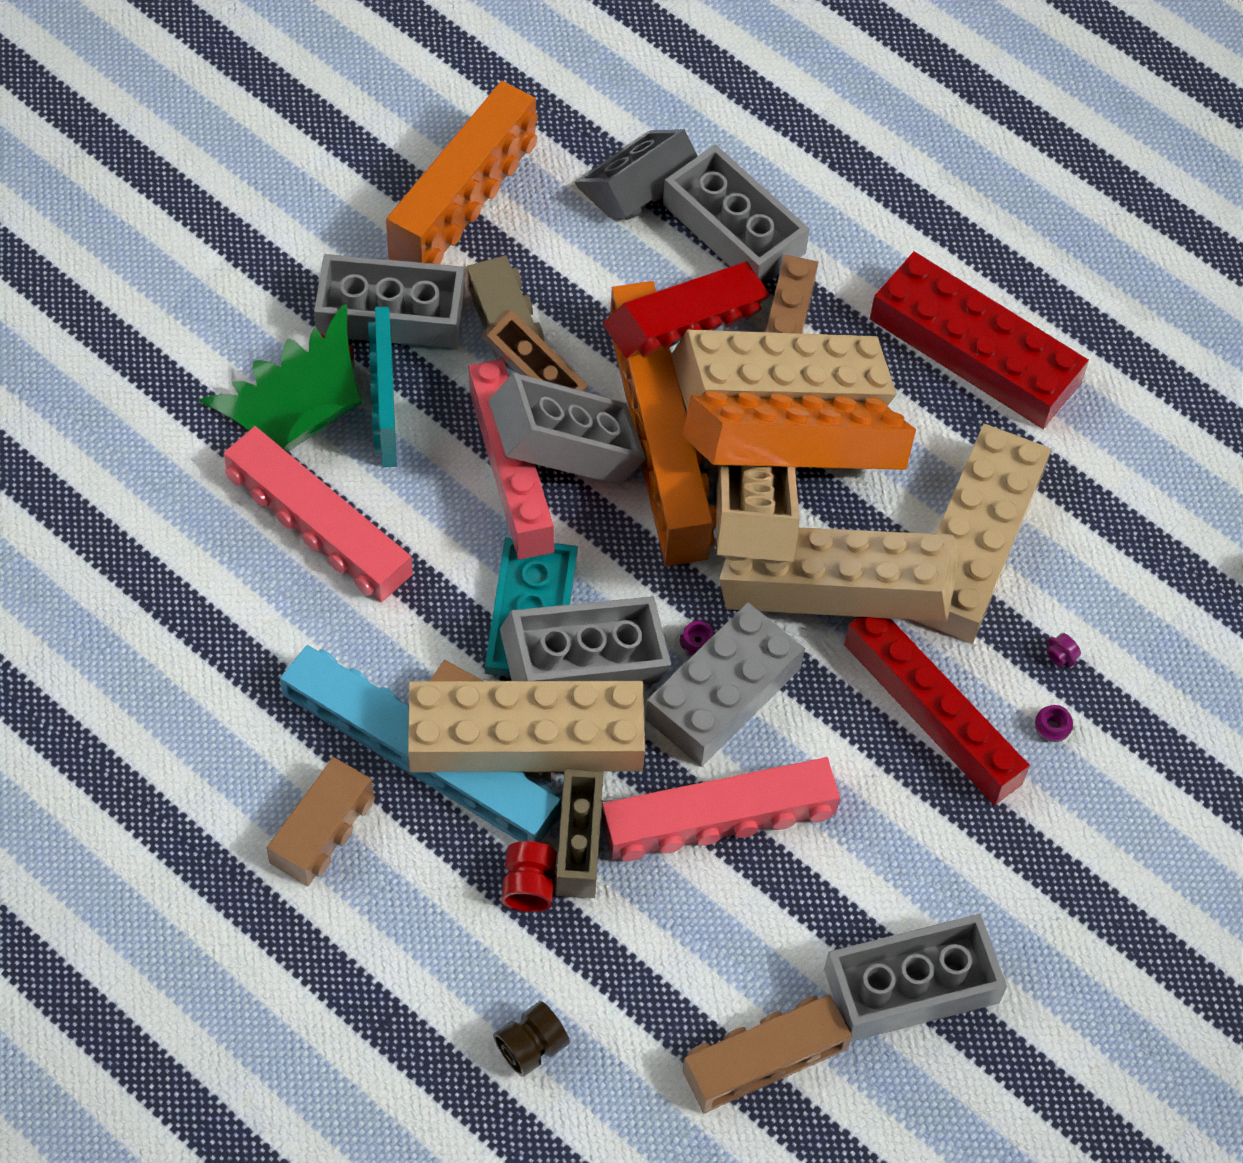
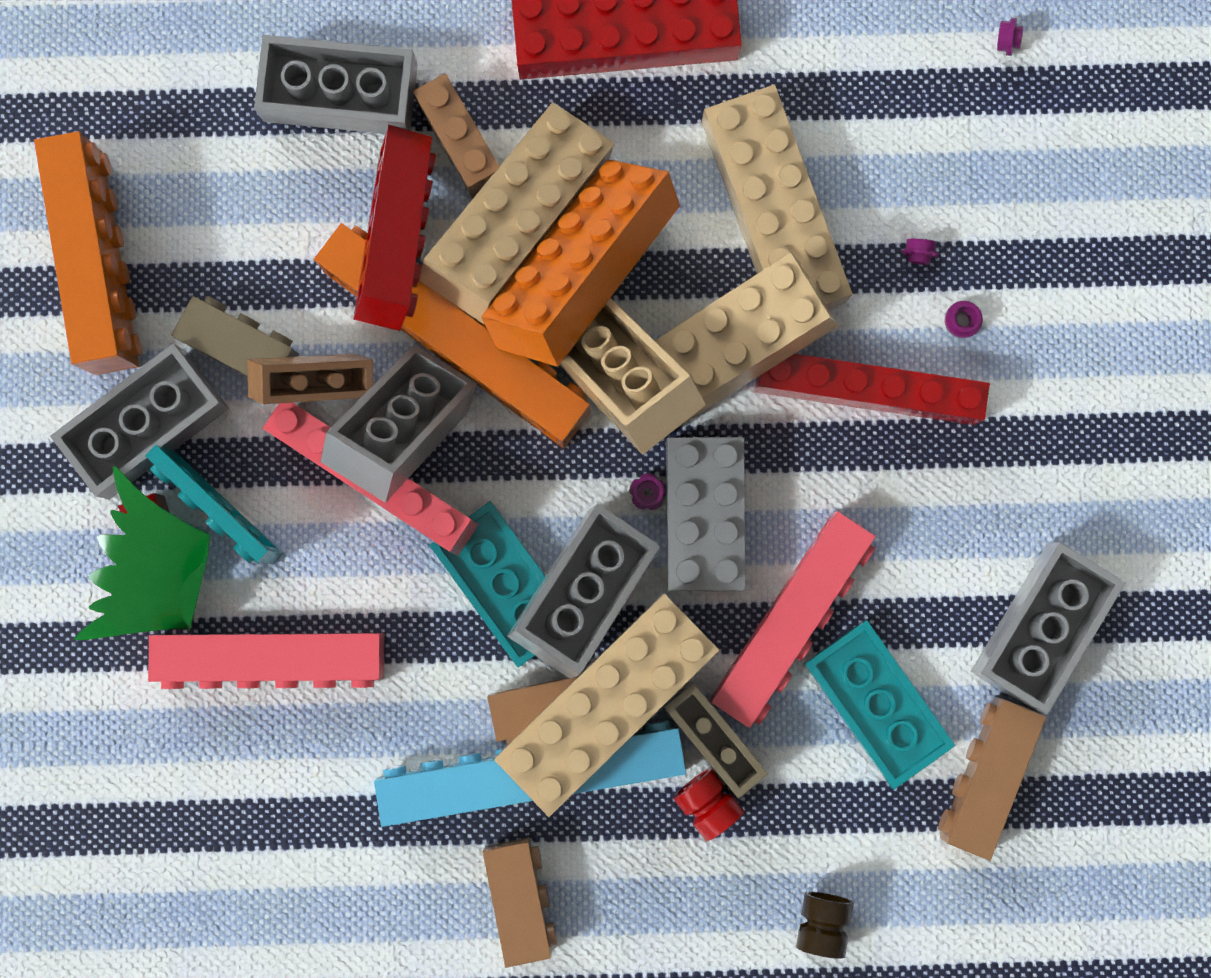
camera: 40 degrees left, 25 degrees up
(637, 172) = (218, 110): dark grey slope -> none
(729, 927) = (879, 704): none -> teal plate

